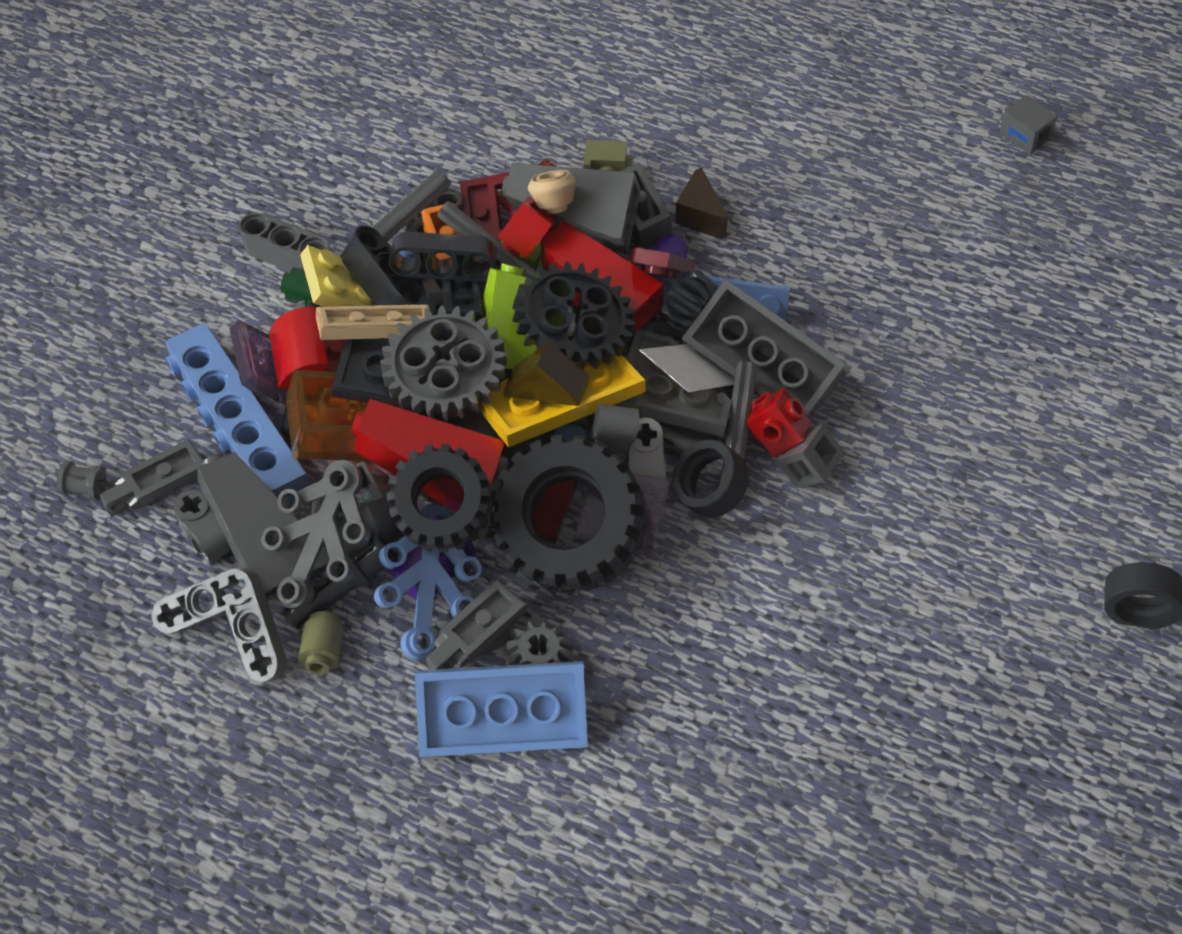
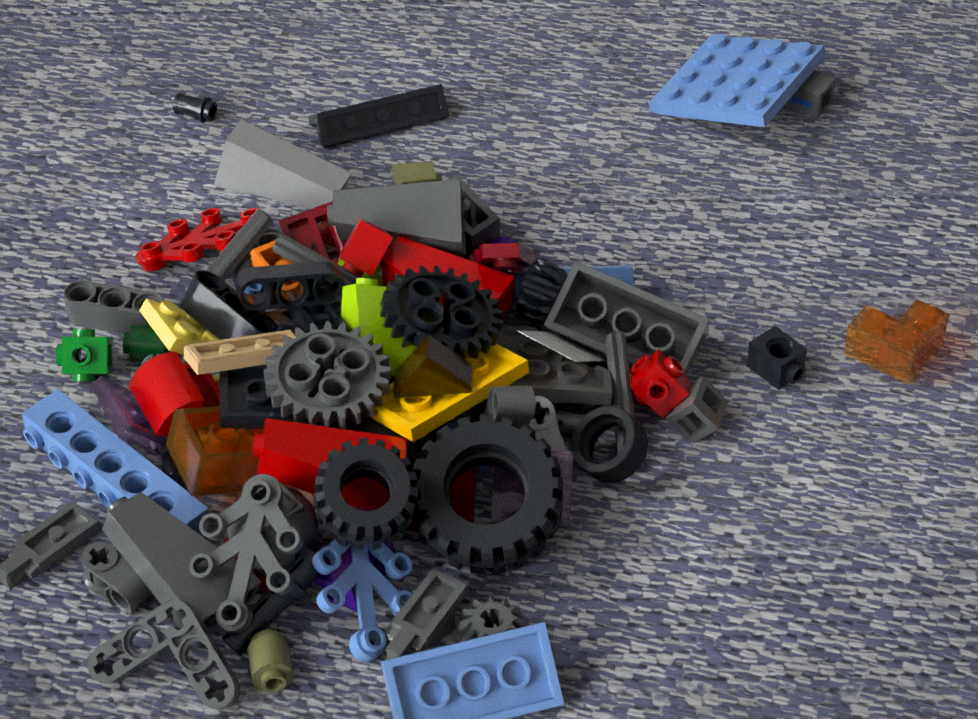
camera: 15 degrees left, 10 degrees down
(243, 290) = (98, 359): none -> green brick
(390, 186) = (157, 254): none -> red plant
(429, 48) = (196, 107): none -> black pin
(478, 126) = (277, 169): none -> light grey slope
(553, 190) = (385, 206): tan cone -> none
(595, 82) = (380, 115): none -> black fence
(701, 208) = (522, 210): dark brown slope -> none
(908, 413) = (777, 358): none -> black brick
(958, 101) = (737, 80): none -> medium blue plate
(1035, 422) = (895, 344): none -> clear orange brick

